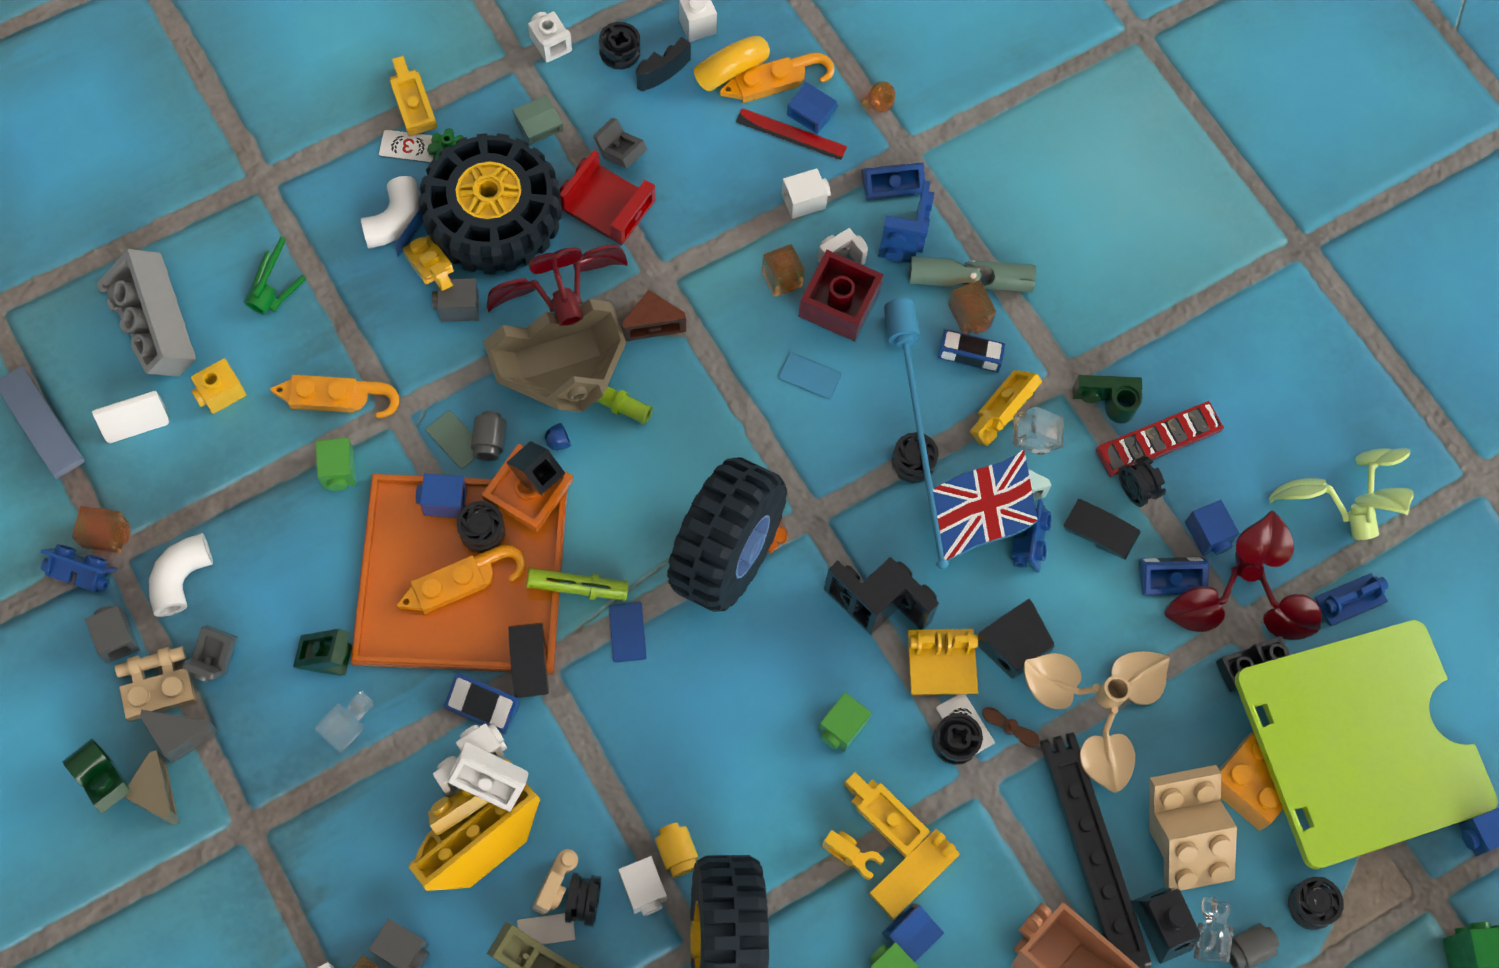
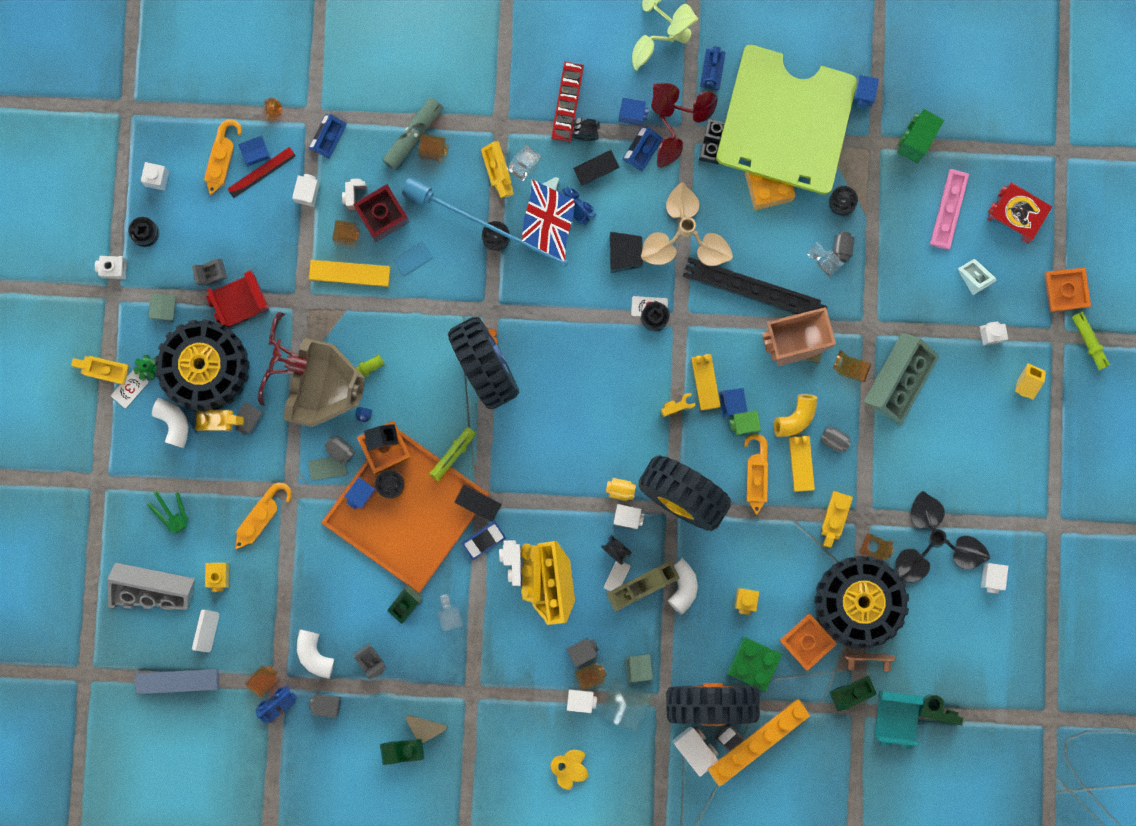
camera: 55 degrees left, 15 degrees up
(157, 693) = (372, 699): tan plate -> none
(177, 734) = (402, 702): dark grey slope -> none
(335, 463) = (304, 538): bright green brick -> none
(458, 580) = (410, 511): light orange plate -> none
(488, 777) = (531, 559): white slope -> none
(551, 889) = (602, 562): tan plate -> none
(627, 632) = (492, 443): blue sticker -> none
(653, 318) = (327, 320): copper slope -> none
(660, 69) = (174, 221): black slope -> none
(731, 61) = (198, 176): yellow cylinder -> none
(735, 310) = (349, 273): none -> yellow tile
(843, 723) = (611, 367): bright green brick -> none
(881, 594) = (560, 304): black bracket -> none
(886, 814) = (669, 376): yellow hinge -> none
(906, 237) = (372, 157): blue bracket -> none
(943, 661) = (611, 296): yellow hinge -> none
(971, 350) = (454, 164): slope -> none
(1011, 727) = (665, 285): reddish brown piece -> none
(1111, 388) = (519, 117): dark green plate -> none
(1167, 923) = (806, 279): black torso -> none
(1192, 828) = (772, 234): tan bracket -> none

